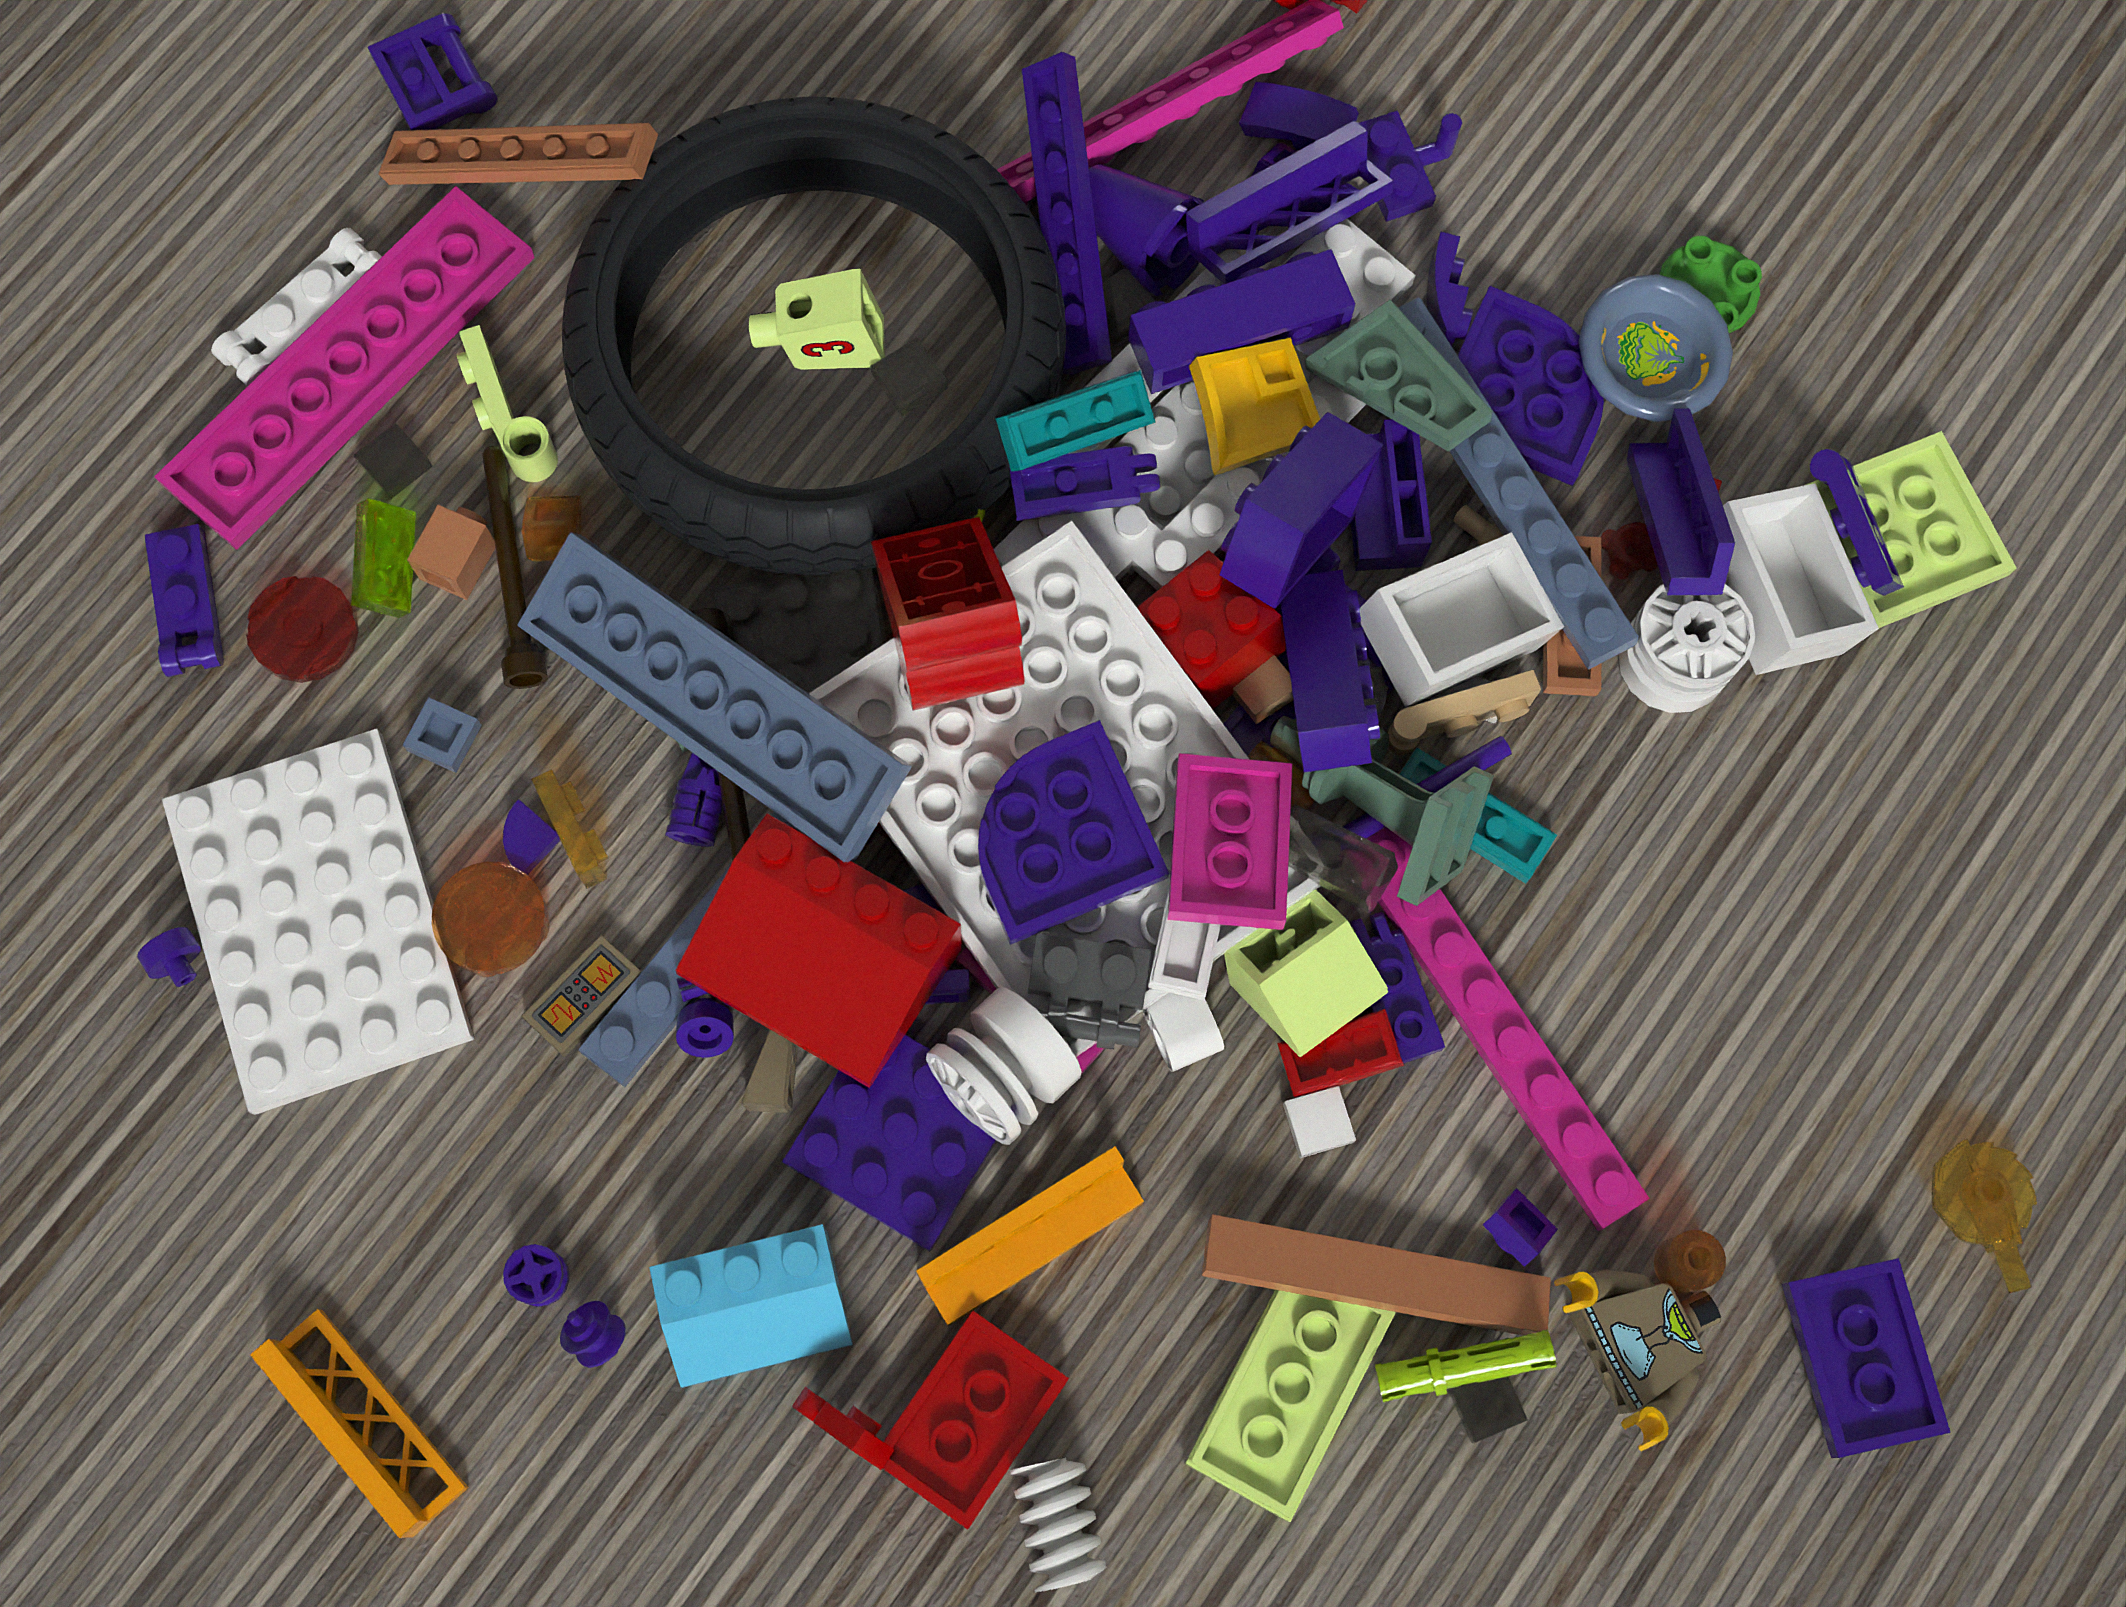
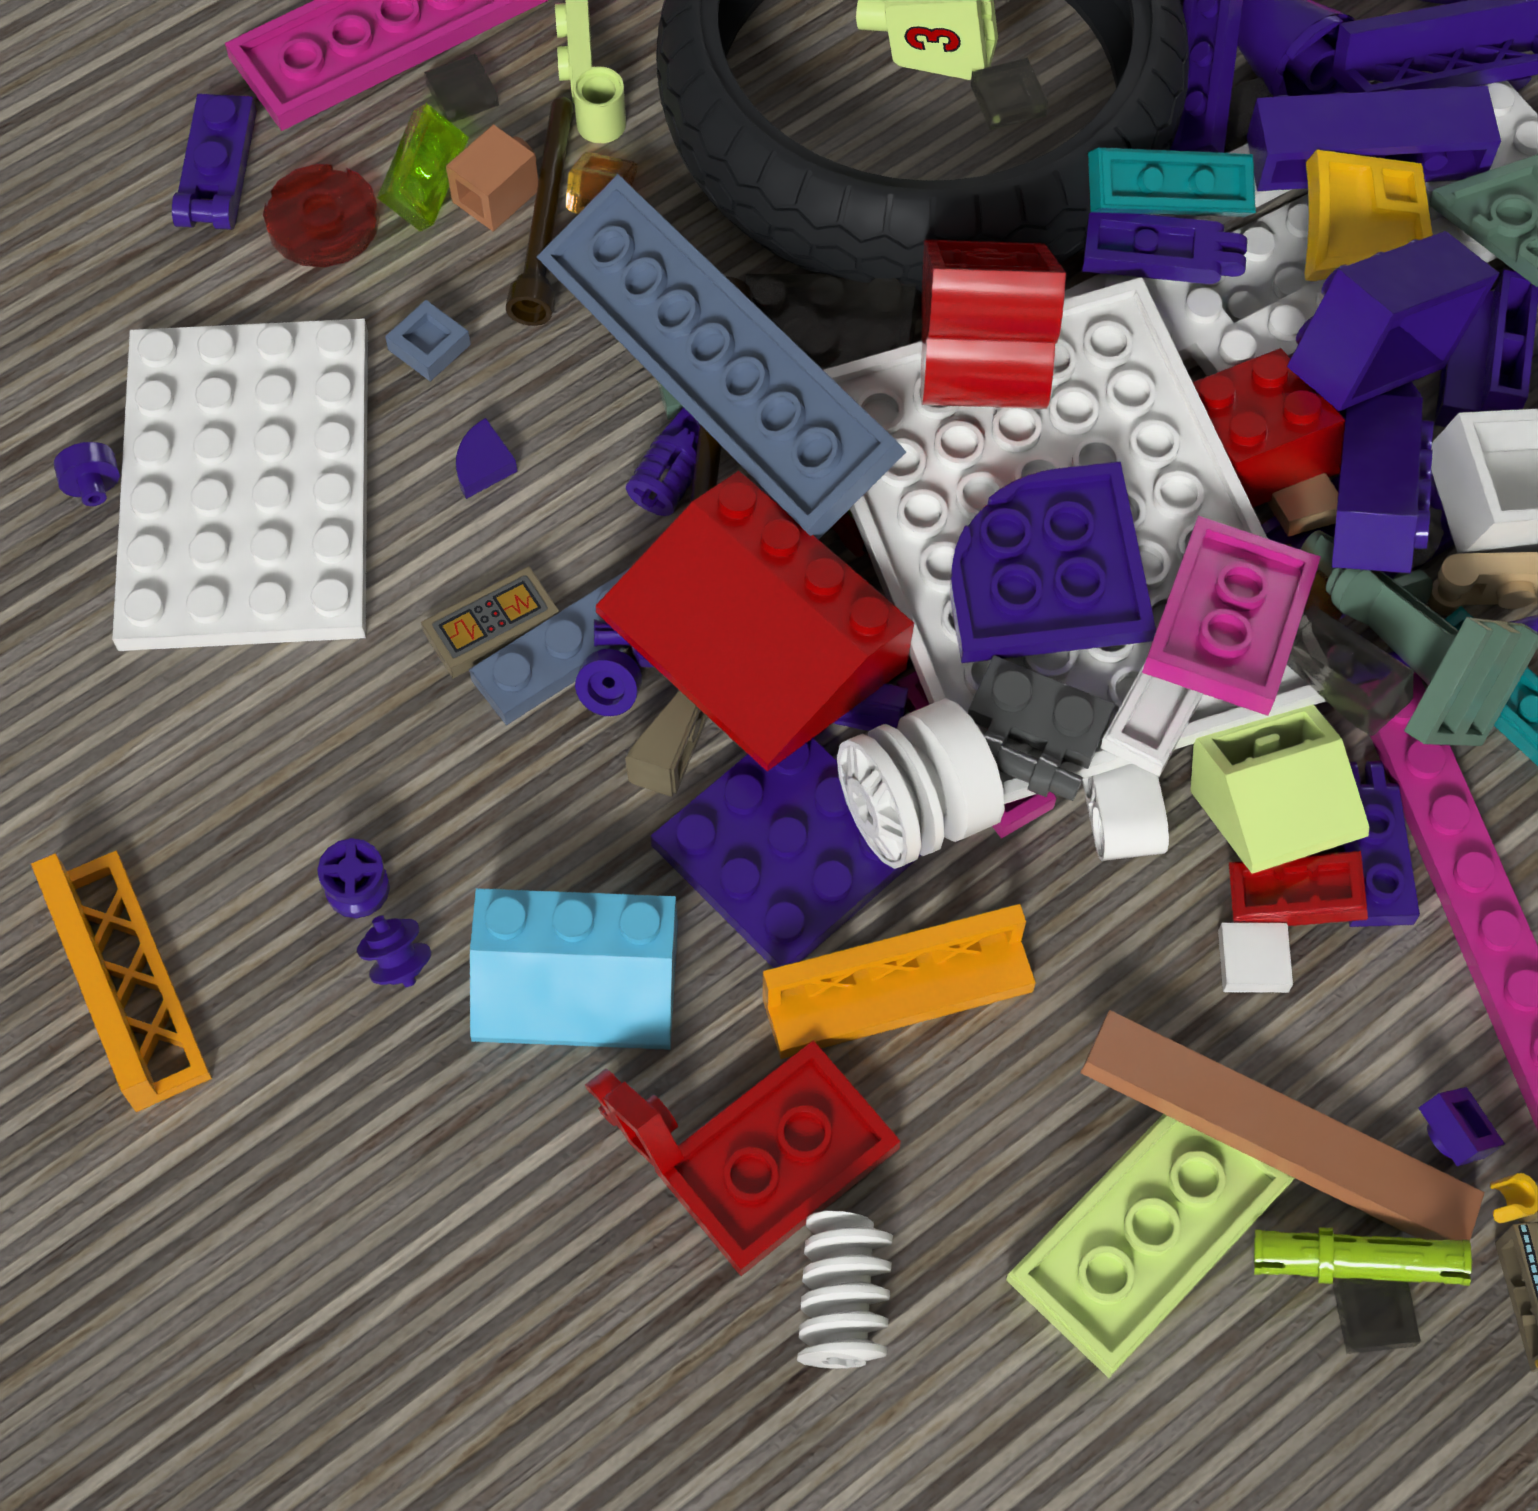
camera: 20 degrees right, 10 degrees down
(489, 918) = (419, 522): clear orange tile -> none
(562, 807) = (536, 477): clear yellow plate -> none

